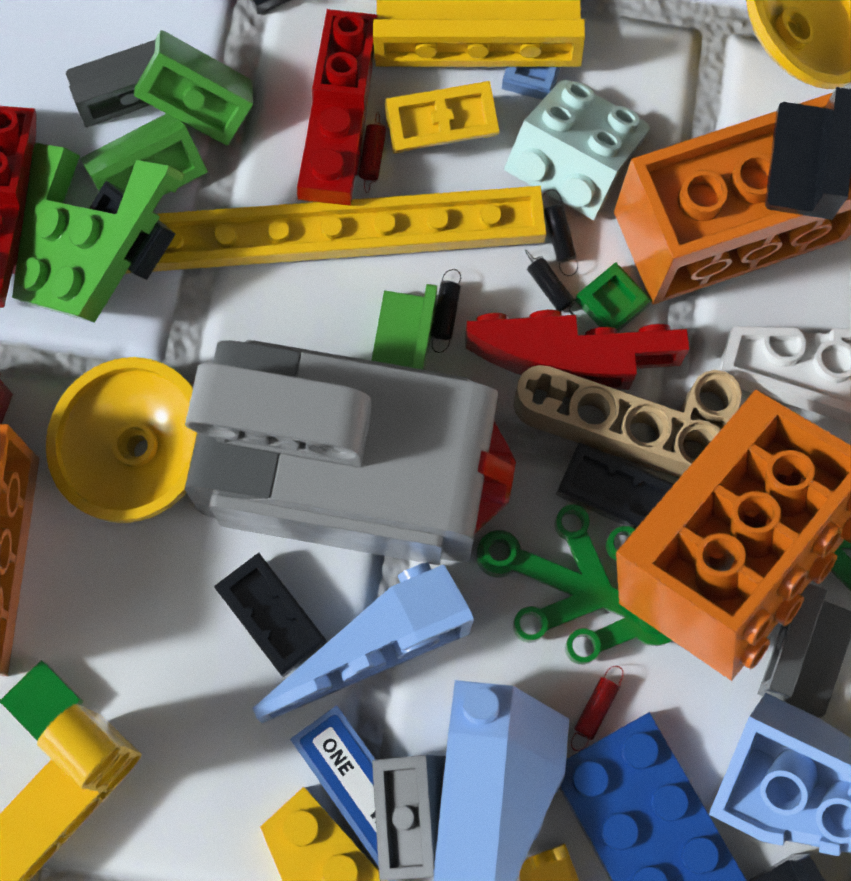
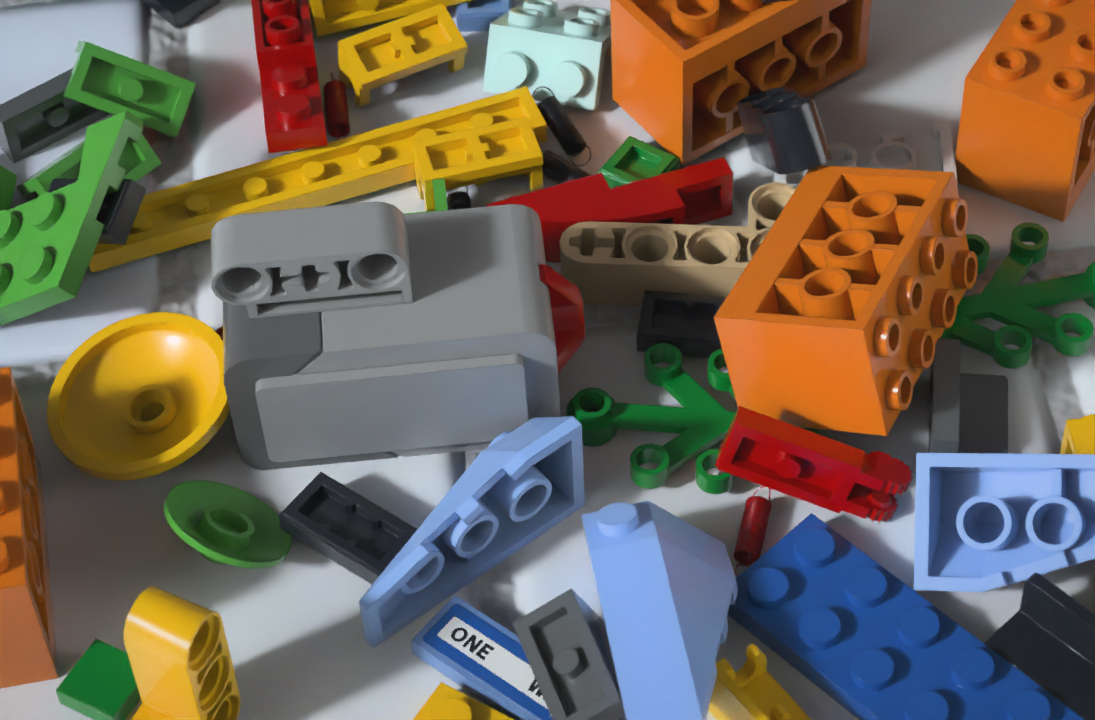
camera: 10 degrees left, 25 degrees down
(182, 571) = (226, 524): none -> bright green dish
(474, 261) = (477, 157): none -> yellow hinge
(662, 677) = (812, 466): none -> red hinge
(745, 333) = (783, 130): none -> black beam

